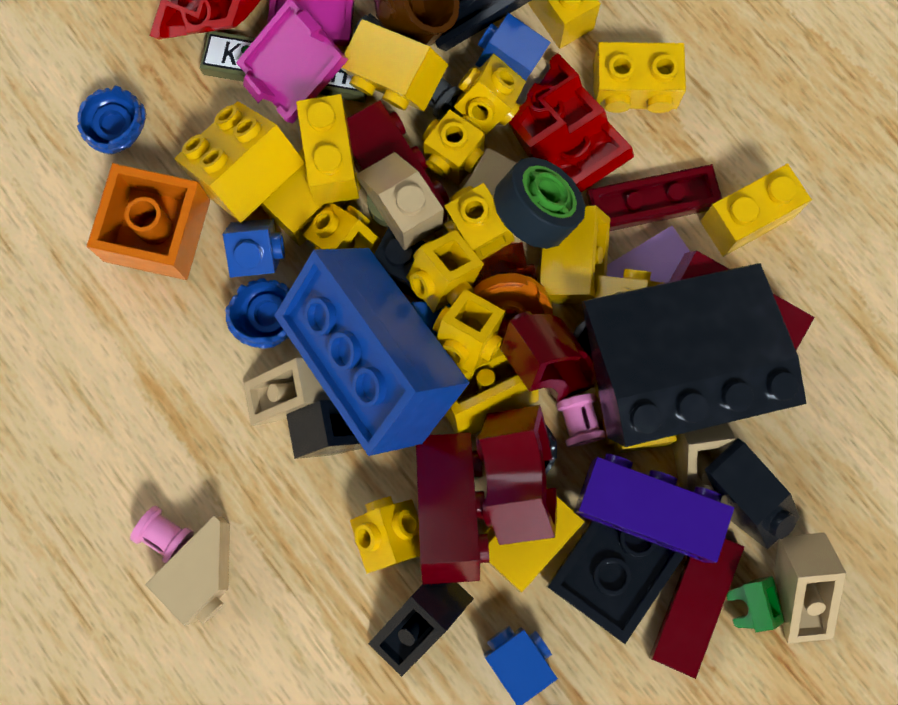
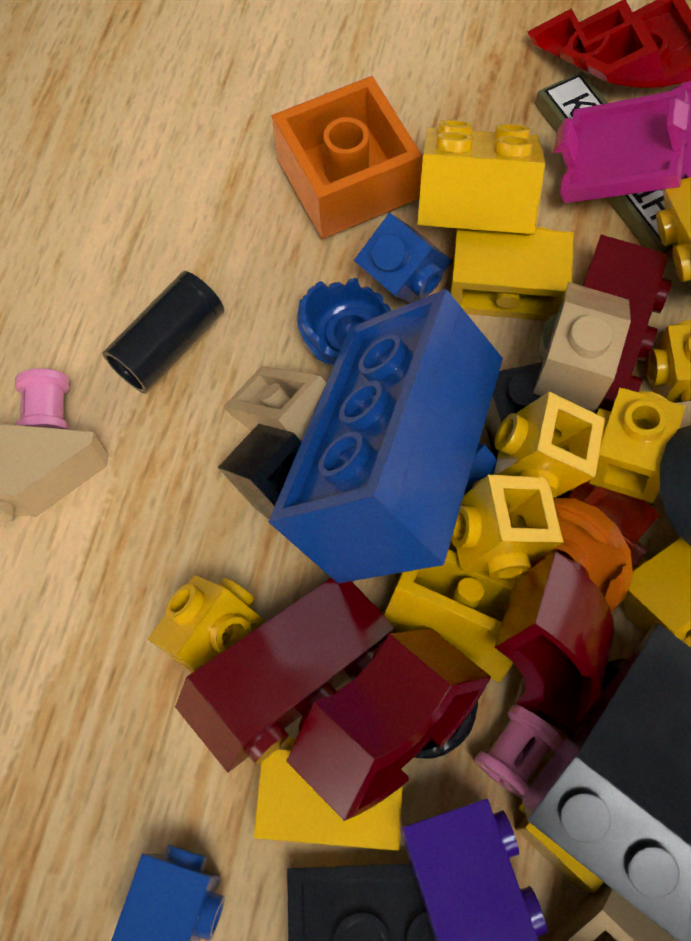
camera: 55 degrees right, 10 degrees down
(111, 120) = (416, 60): blue hair -> none
(173, 424) = (164, 331): none -> black pin
(327, 149) = (567, 236): yellow brick -> none
(341, 229) = (501, 321): yellow brick -> none
(420, 624) = (136, 745): black slope -> none

